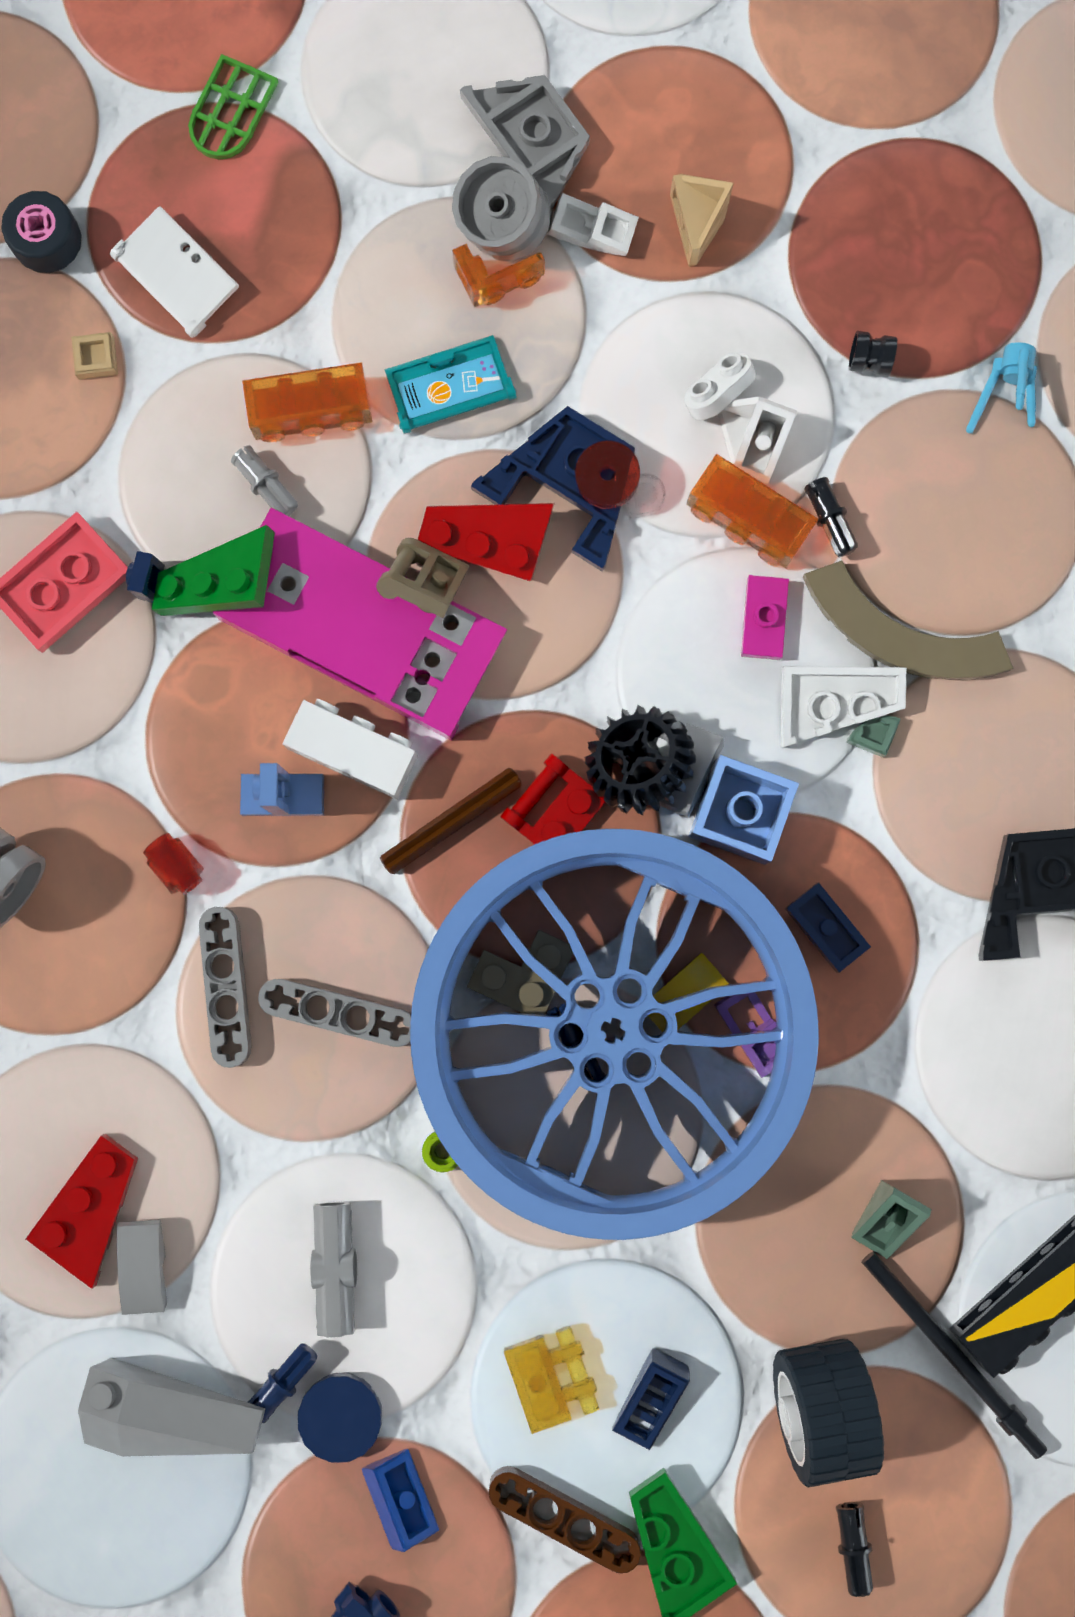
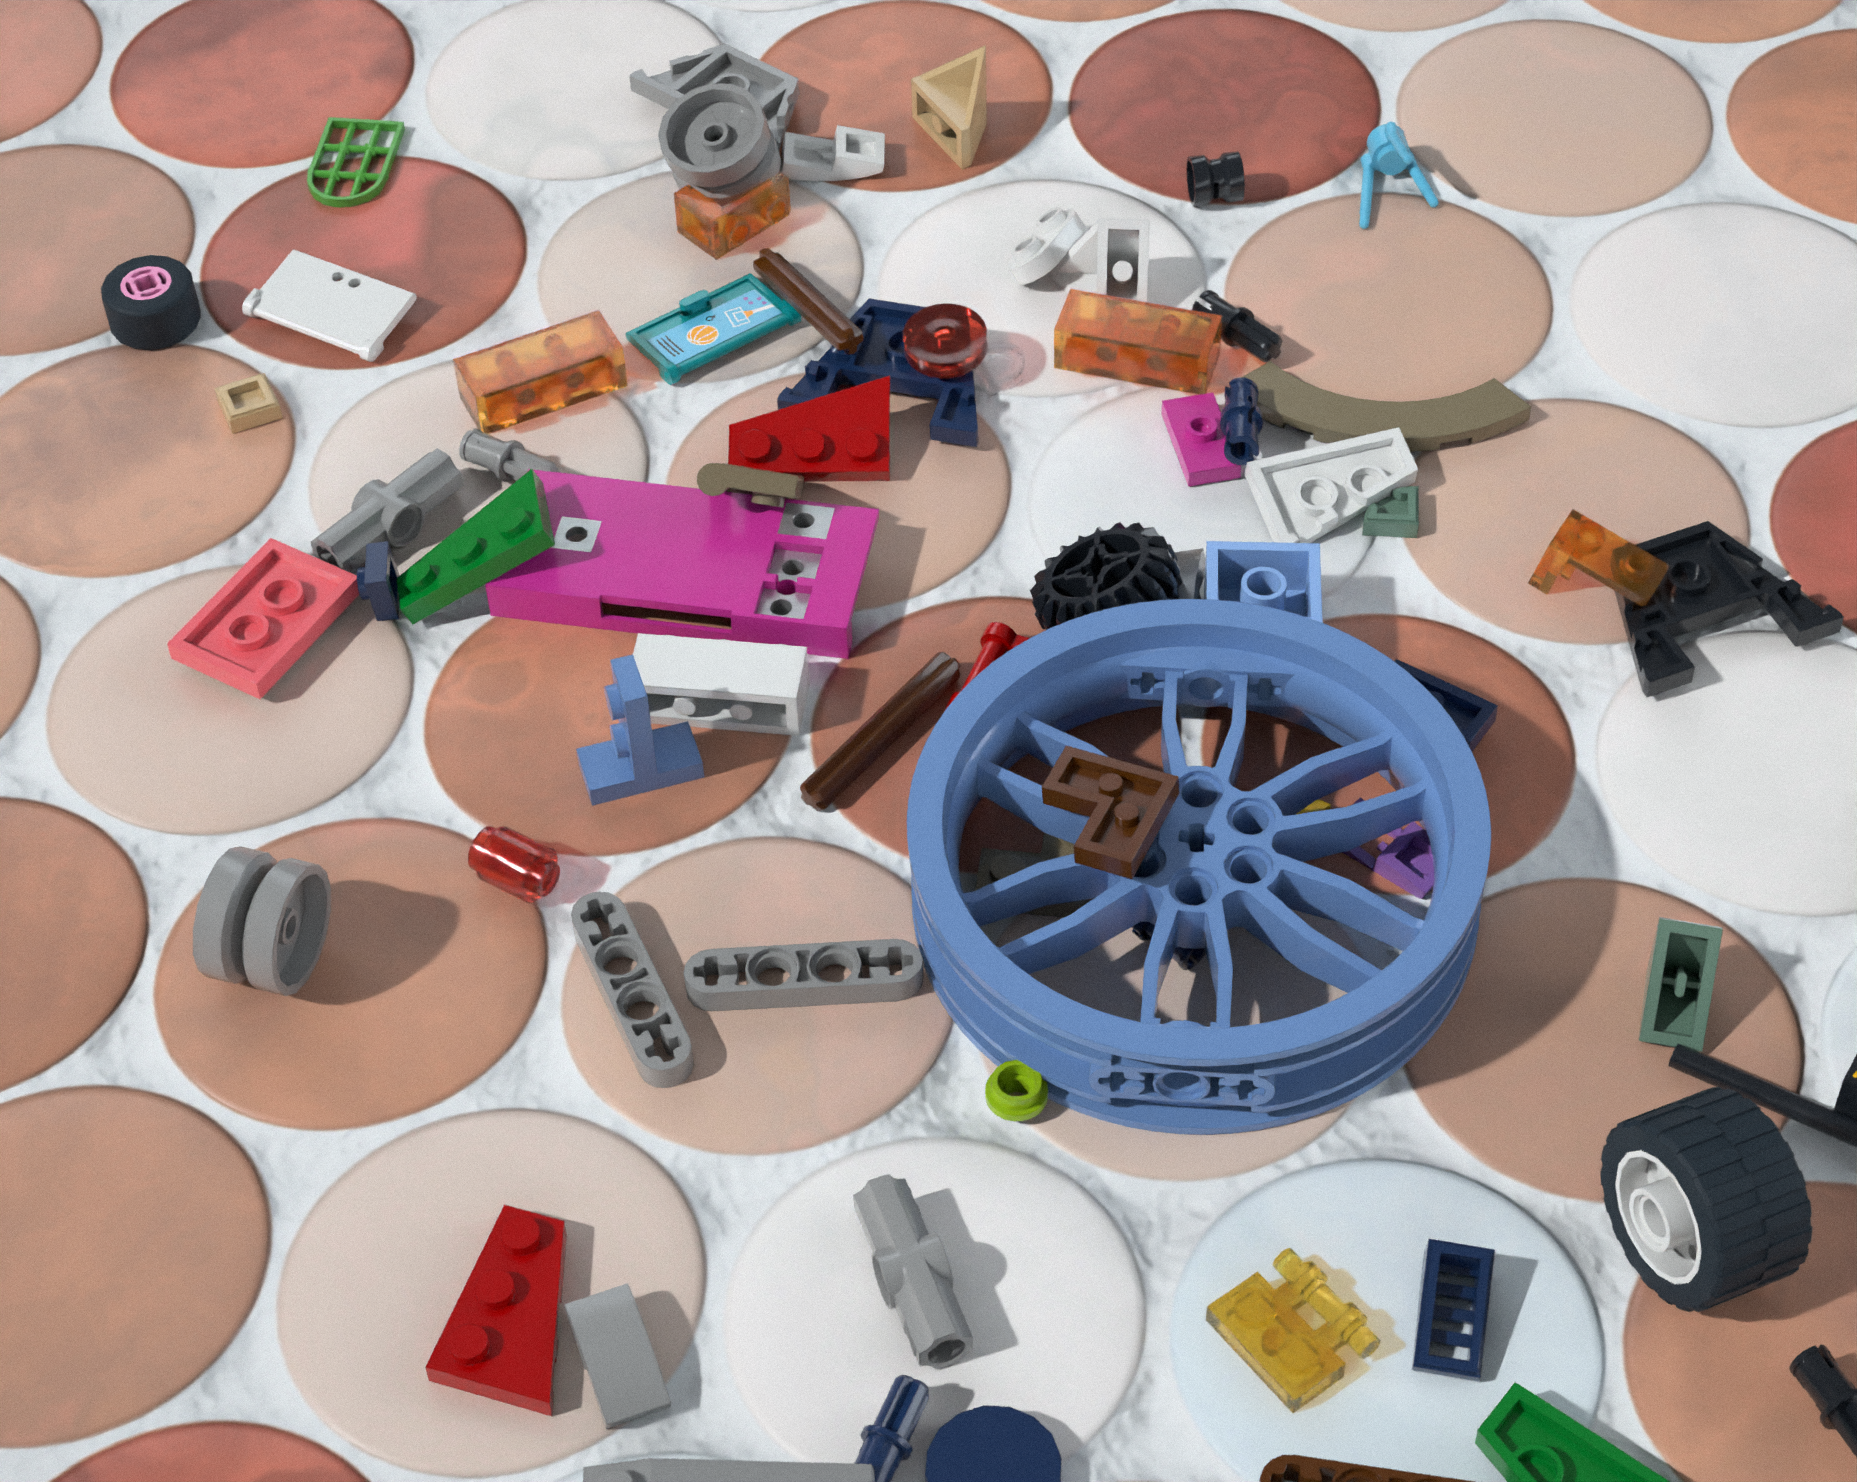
camera: 15 degrees left, 35 degrees down
(165, 509) = (389, 511): none -> light grey piece
(521, 394) = (808, 301): none -> reddish brown axle
(572, 999) = (1123, 806): none -> reddish brown plate
(795, 624) = (1241, 421): none -> dark blue pin
(994, 843) = (1602, 556): none -> clear orange bracket

